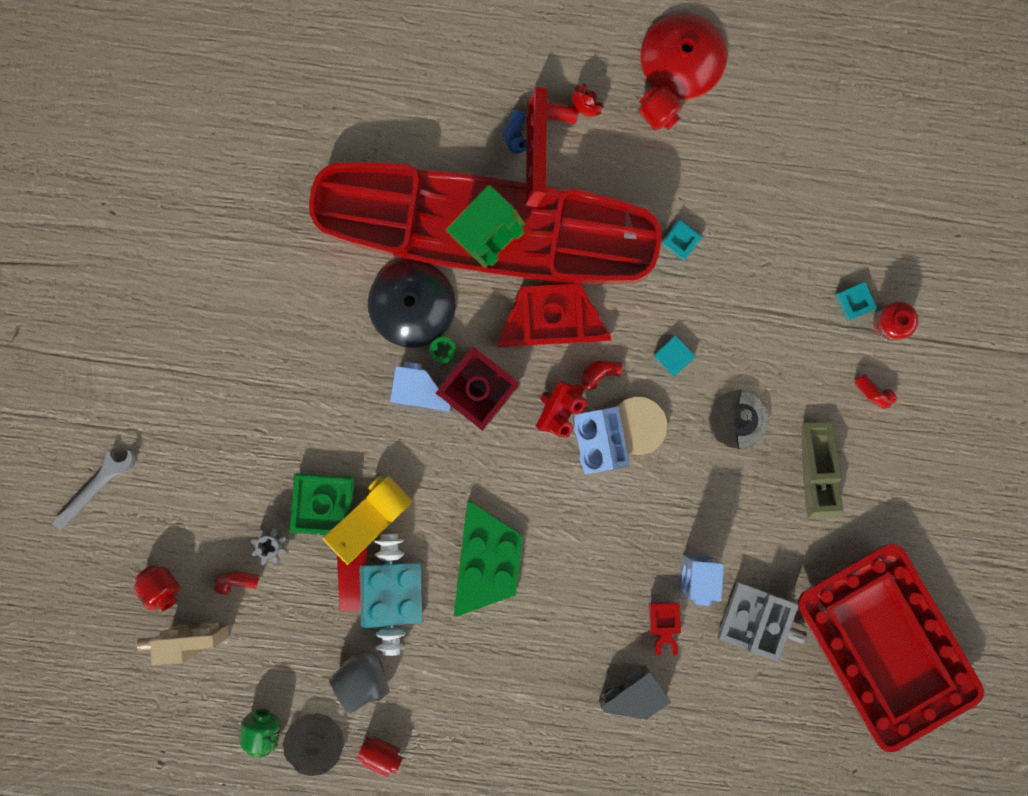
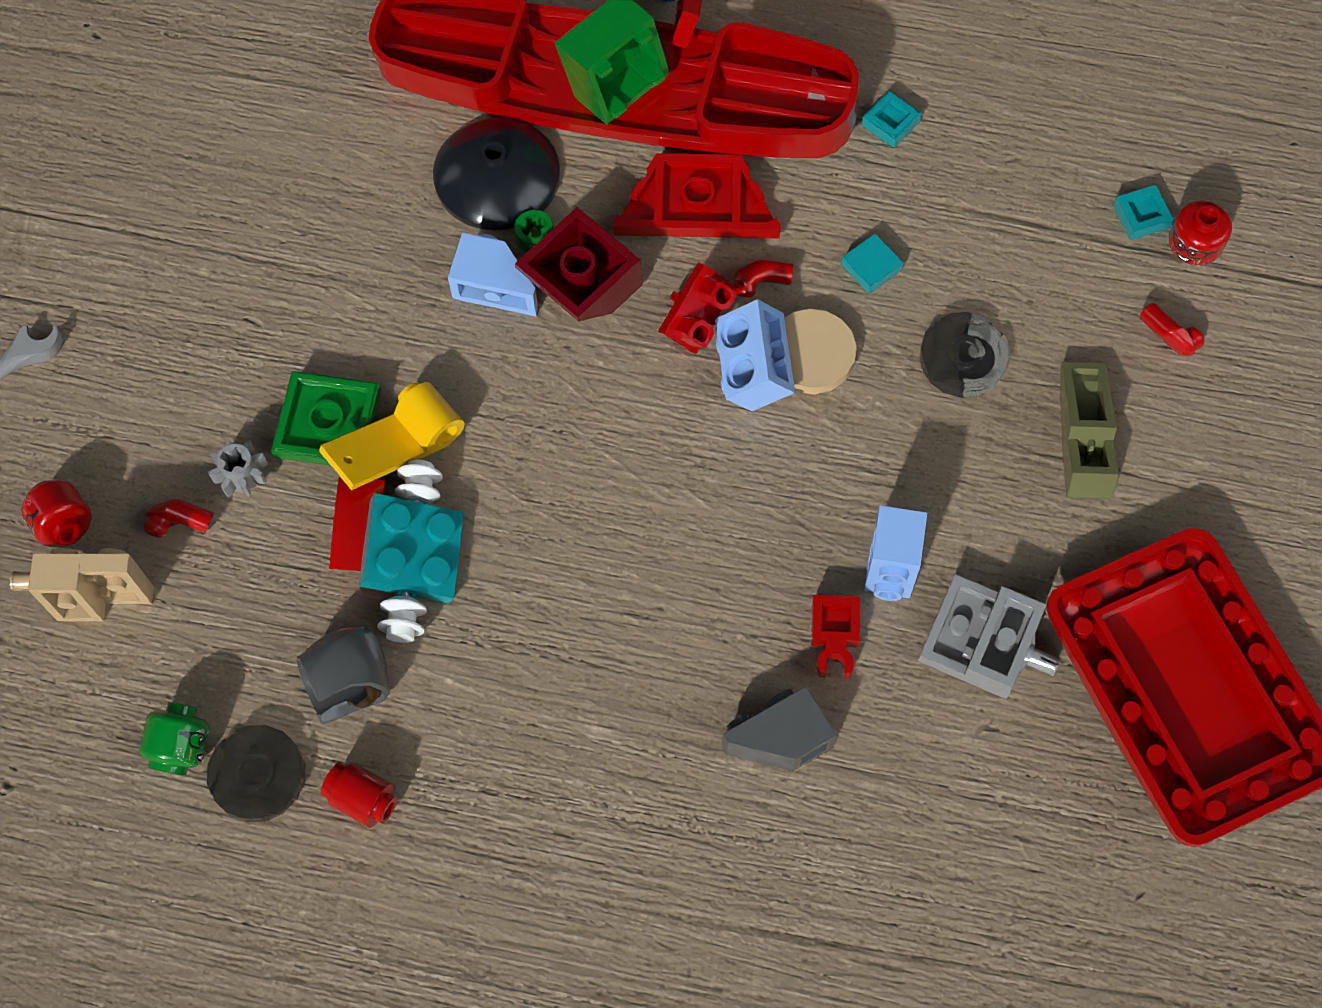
camera: 10 degrees right, 20 degrees down
(487, 561) = (565, 522): green wing -> none

